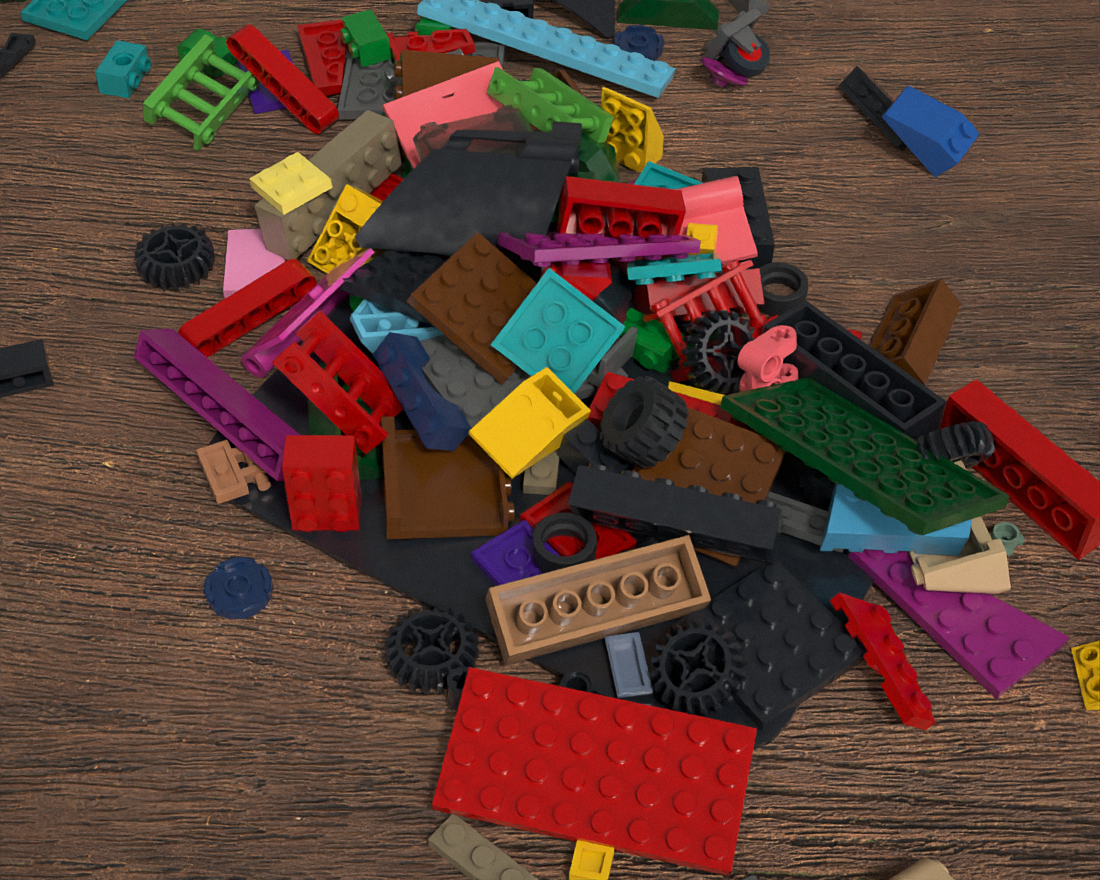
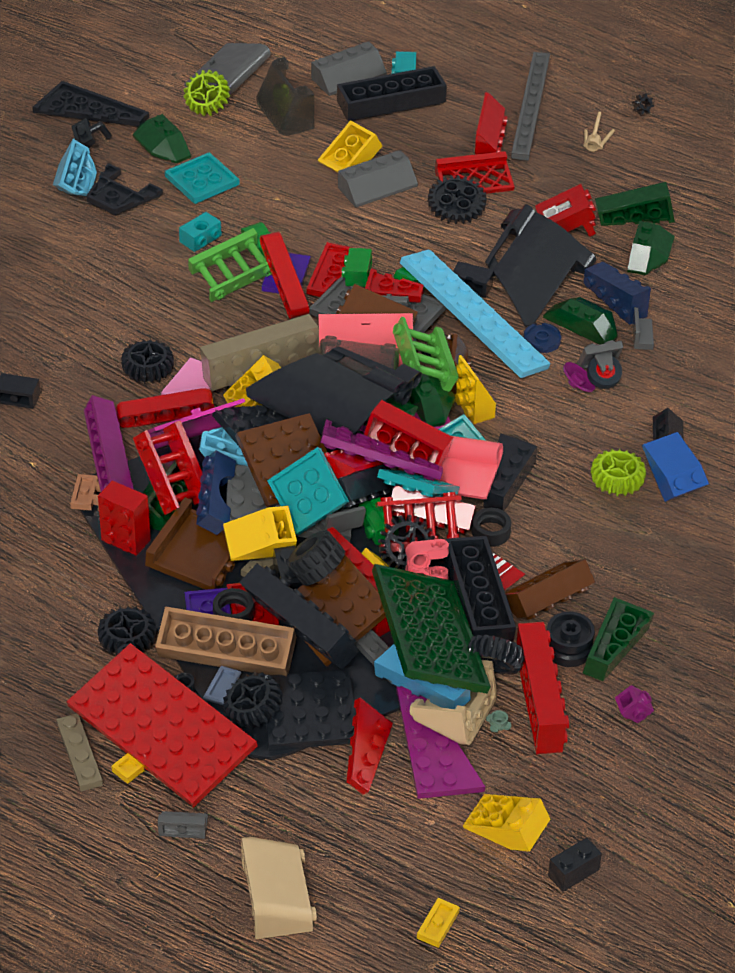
camera: 30 degrees right, 5 degrees down
(238, 588) = (53, 558): dark blue tile -> none
(290, 183) = (227, 341): light yellow plate -> none
(705, 233) = (456, 474): yellow plate -> none
(863, 162) = (618, 472): none -> lime gear
(1005, 375) = (571, 638): none -> black wheel
(1045, 364) = (617, 636): none -> dark green wedge

